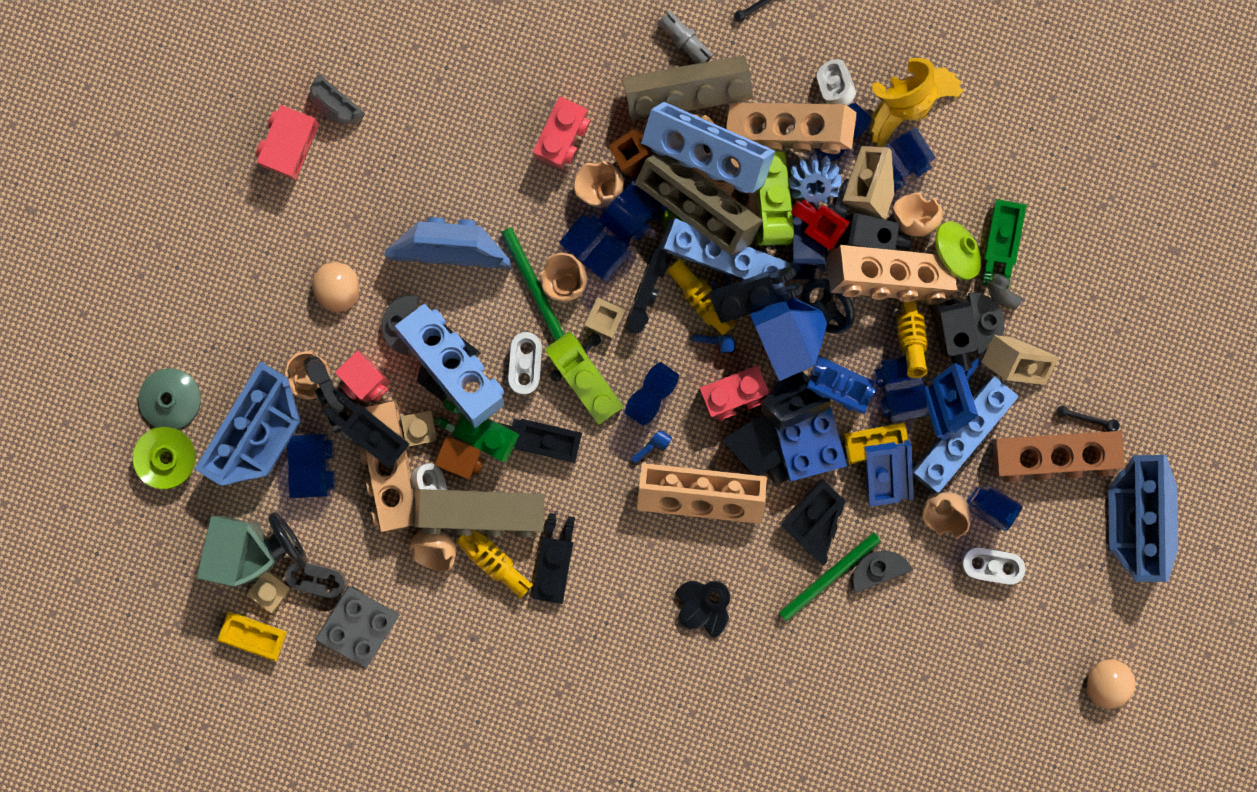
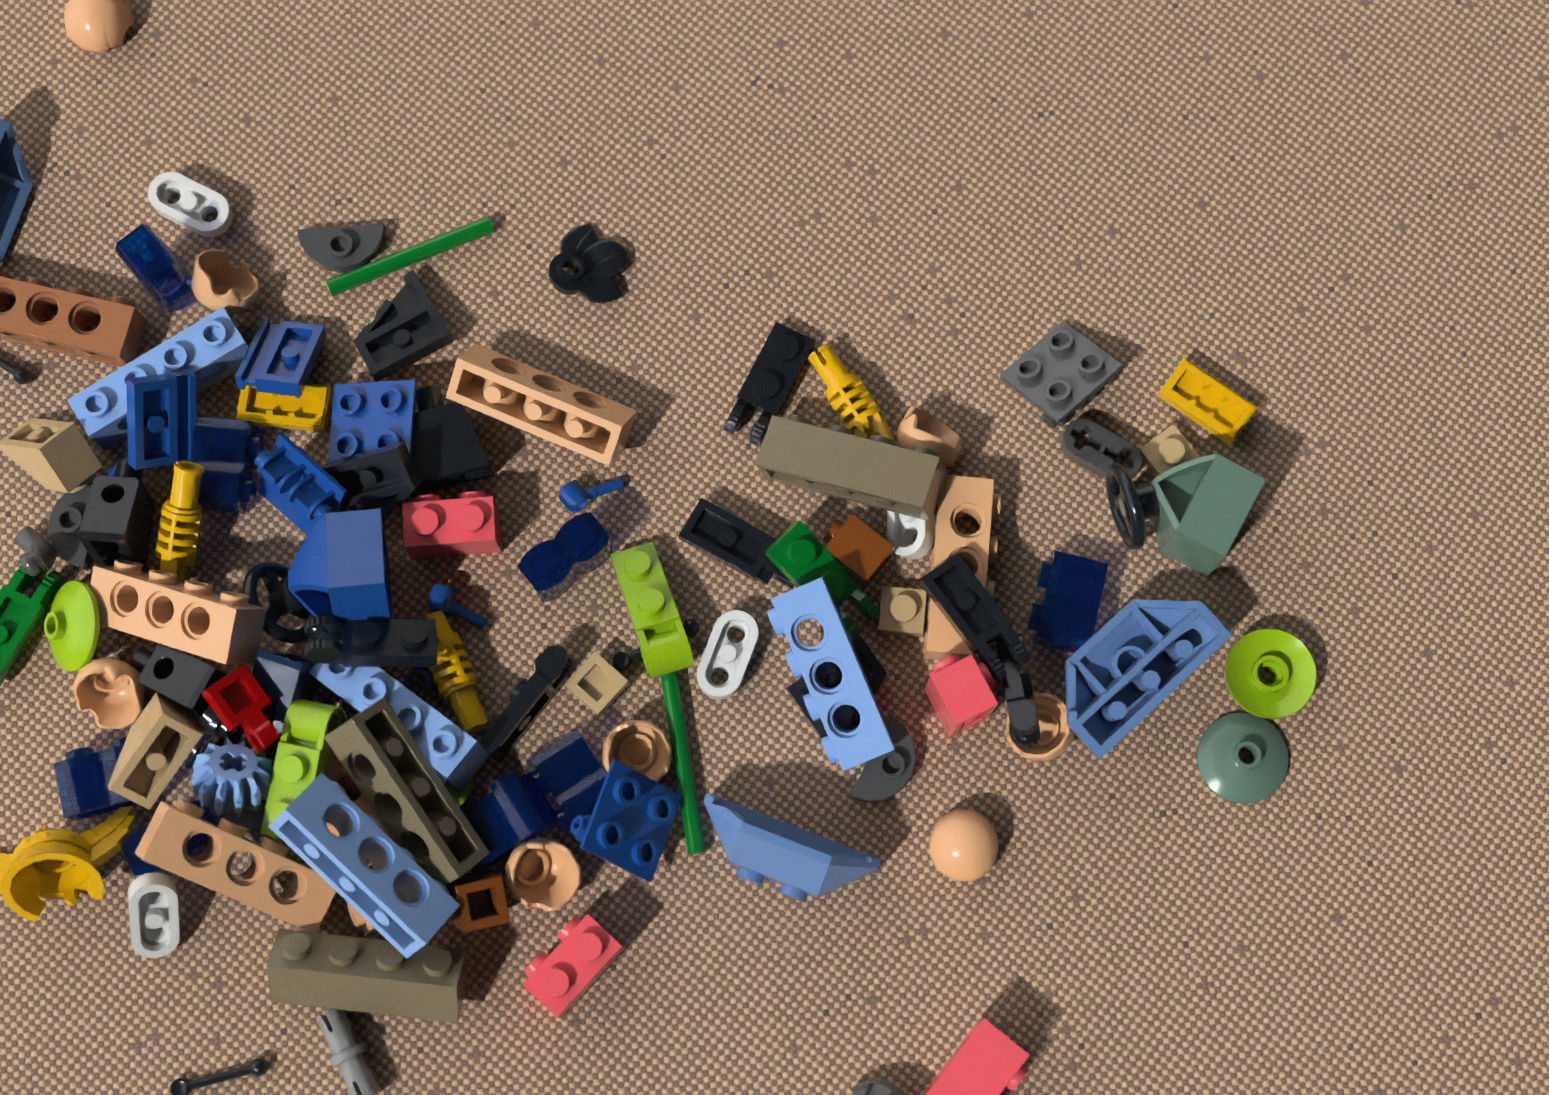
camera: 165 degrees left, 10 degrees down
(553, 231) = (628, 821): none -> blue hinge

